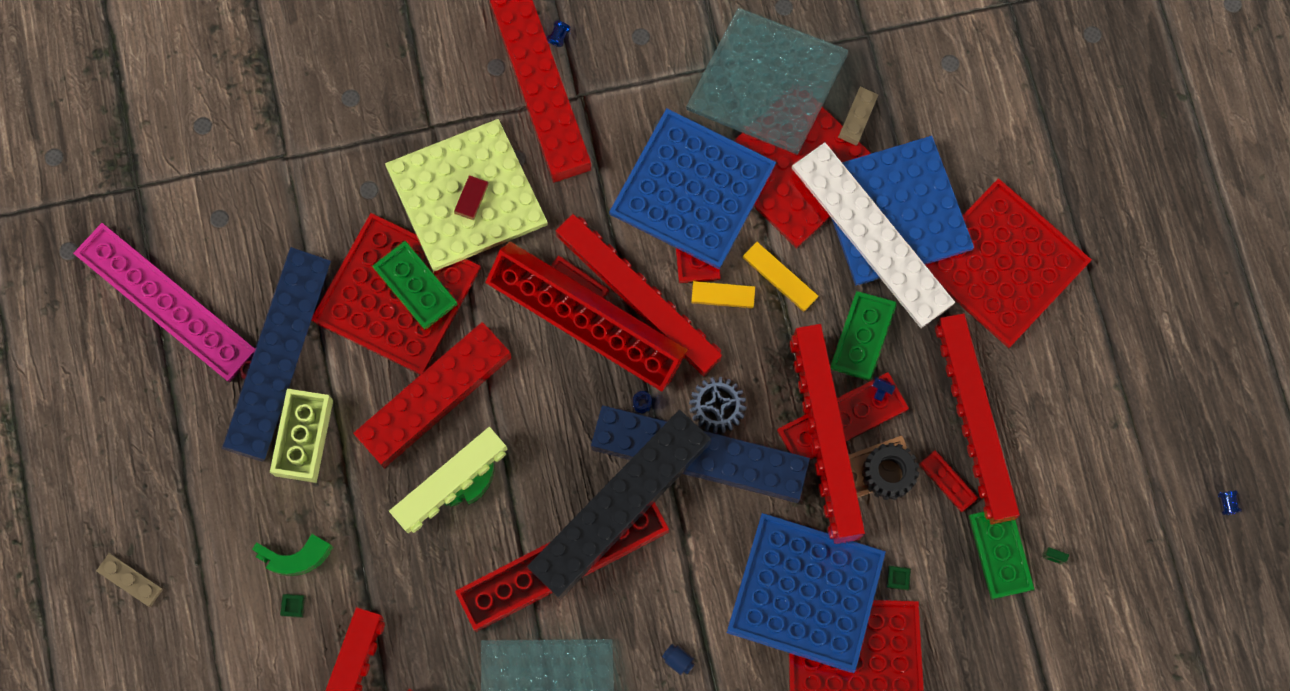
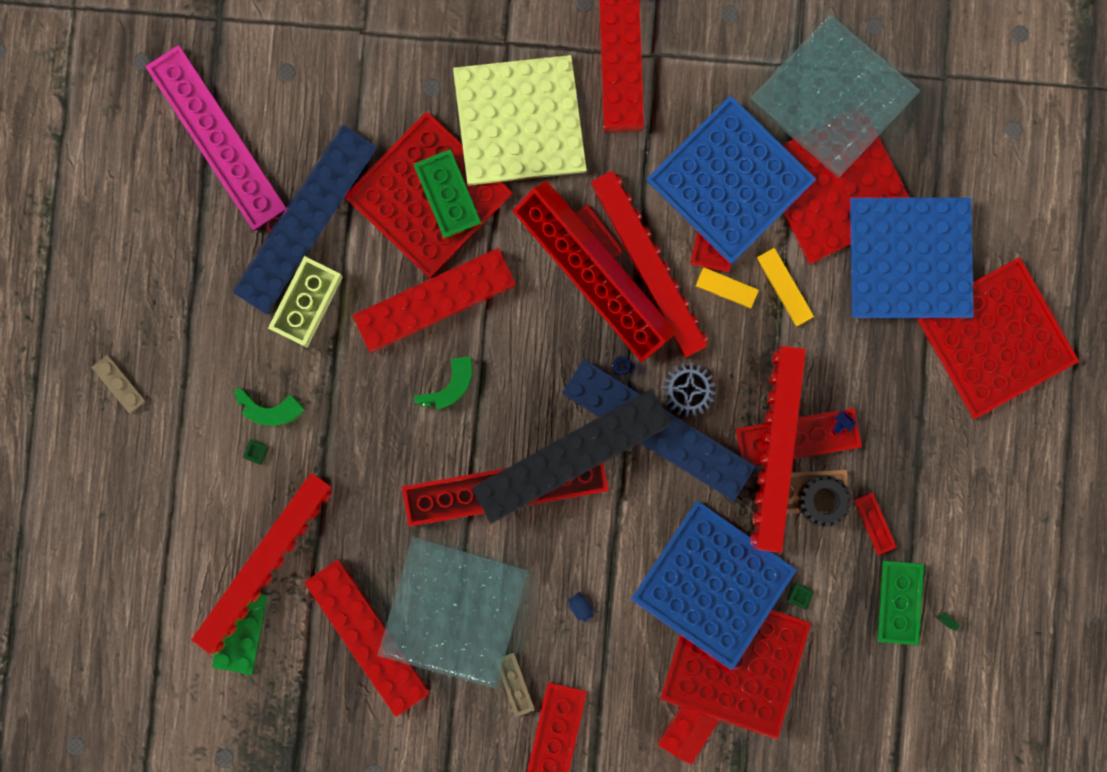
camera: 20 degrees right, 10 degrees up
(448, 480) = (425, 385): yellowish green brick -> none
(471, 197) = (523, 126): dark red tile -> none
(858, 116) = (908, 156): dark tan plate -> none
(863, 336) = (843, 367): green plate -> none
(873, 235) = (882, 276): white plate -> none
(977, 419) = (920, 476): red brick -> none

